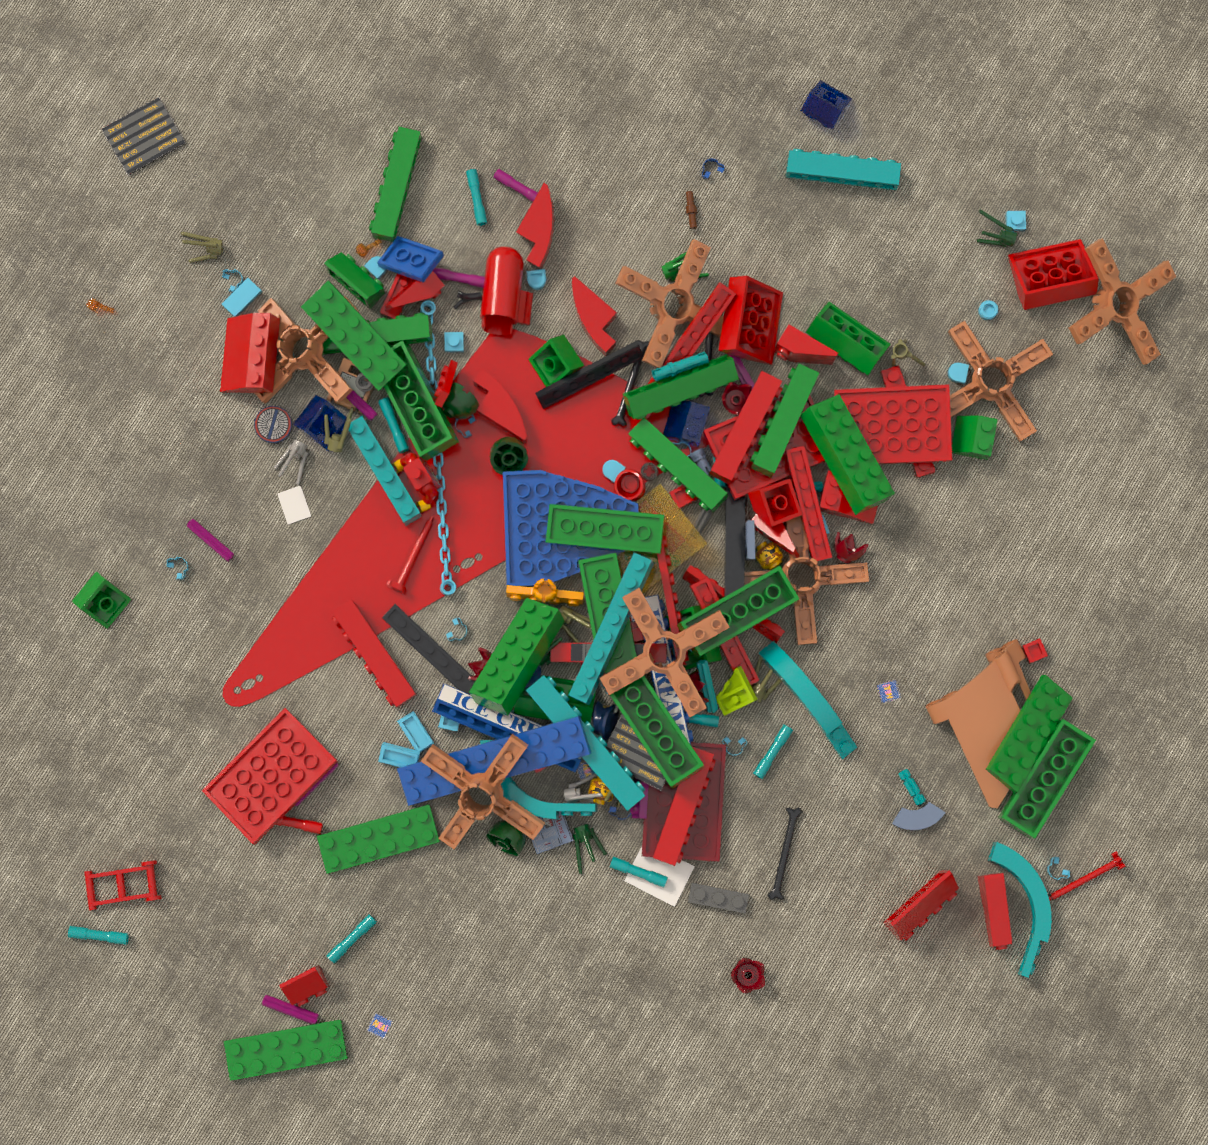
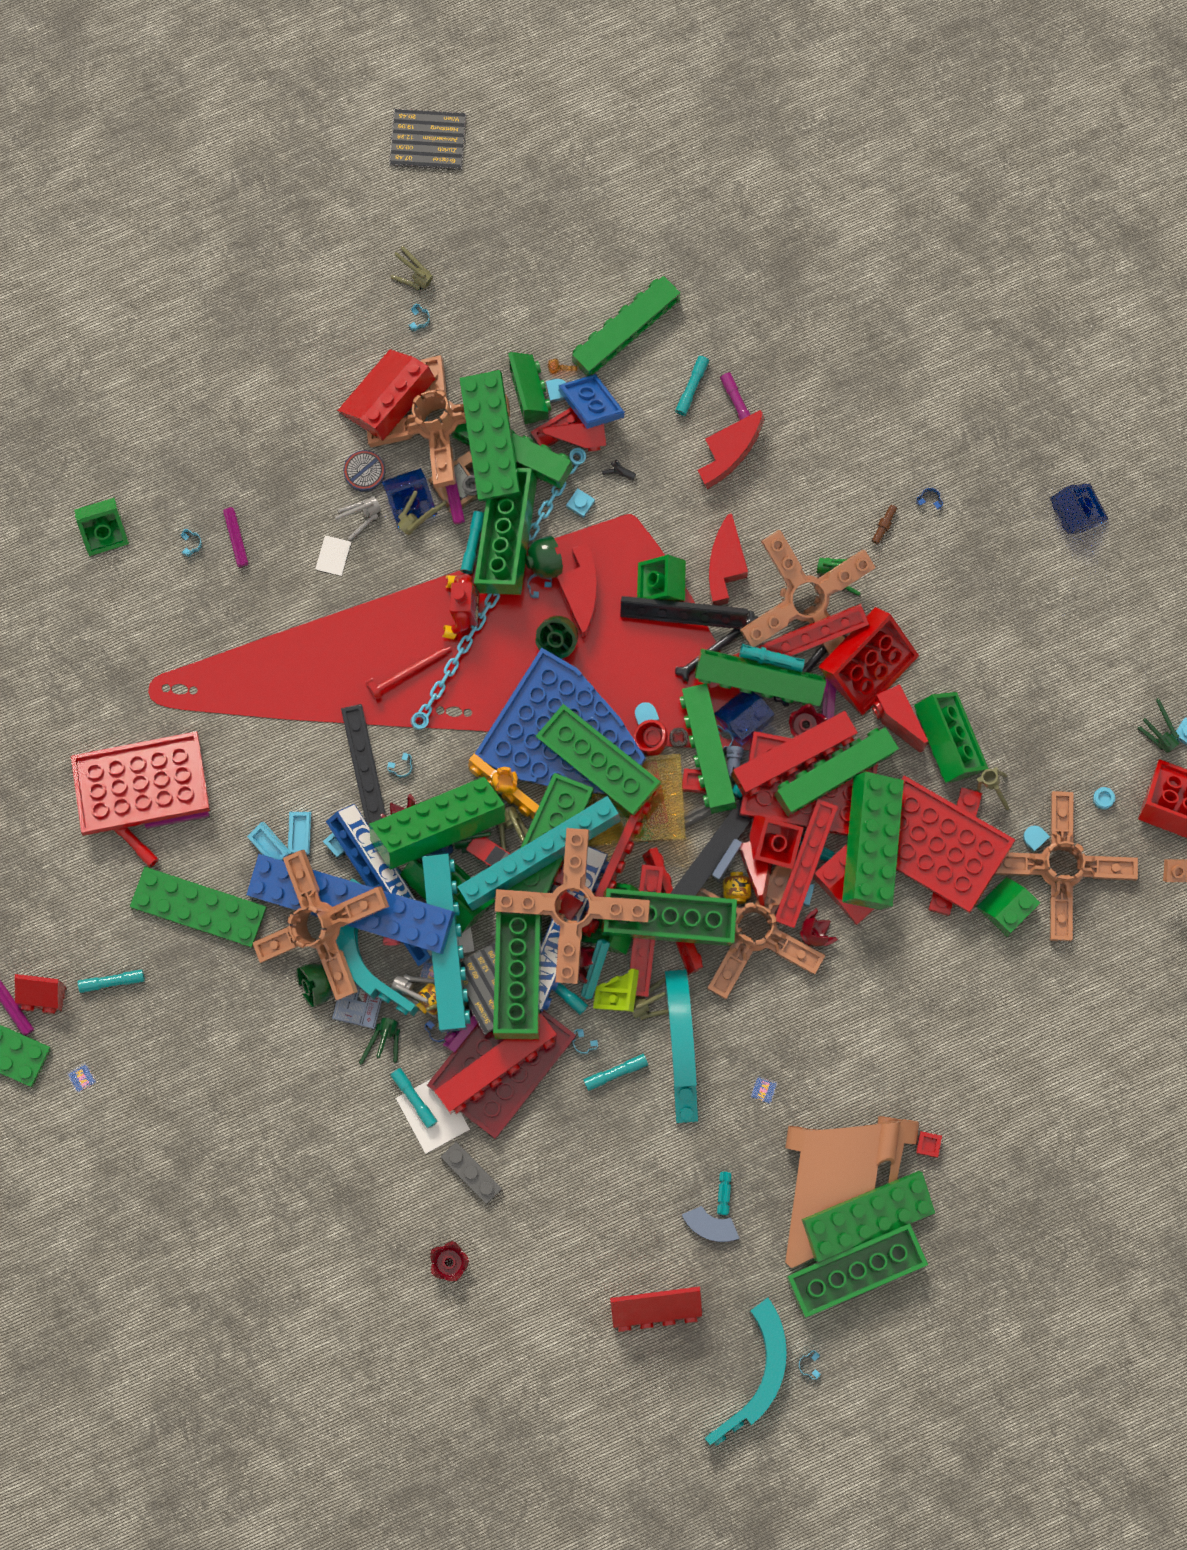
camera: 35 degrees right, 5 degrees down
(93, 304) = (278, 259): clear orange hand -> none
(241, 297) = (415, 339): medium azure tile -> none
(374, 653) = (310, 736): brick -> none
(384, 471) = (434, 577): teal brick -> none
(445, 382) = (544, 531): red plate -> none
(473, 280) = (635, 456): magenta piece -> none
(502, 294) = (651, 491): red piece -> none
(536, 279) = (696, 495): medium azure tile -> none
(604, 720) = (478, 935): dark blue hat -> none
(776, 891) = (529, 1204): black piece -> none
(843, 170) = (1053, 578): teal brick -> none
(995, 910) = (723, 1361): red slope -> none
(1117, 862) = (871, 1395): red piece -> none

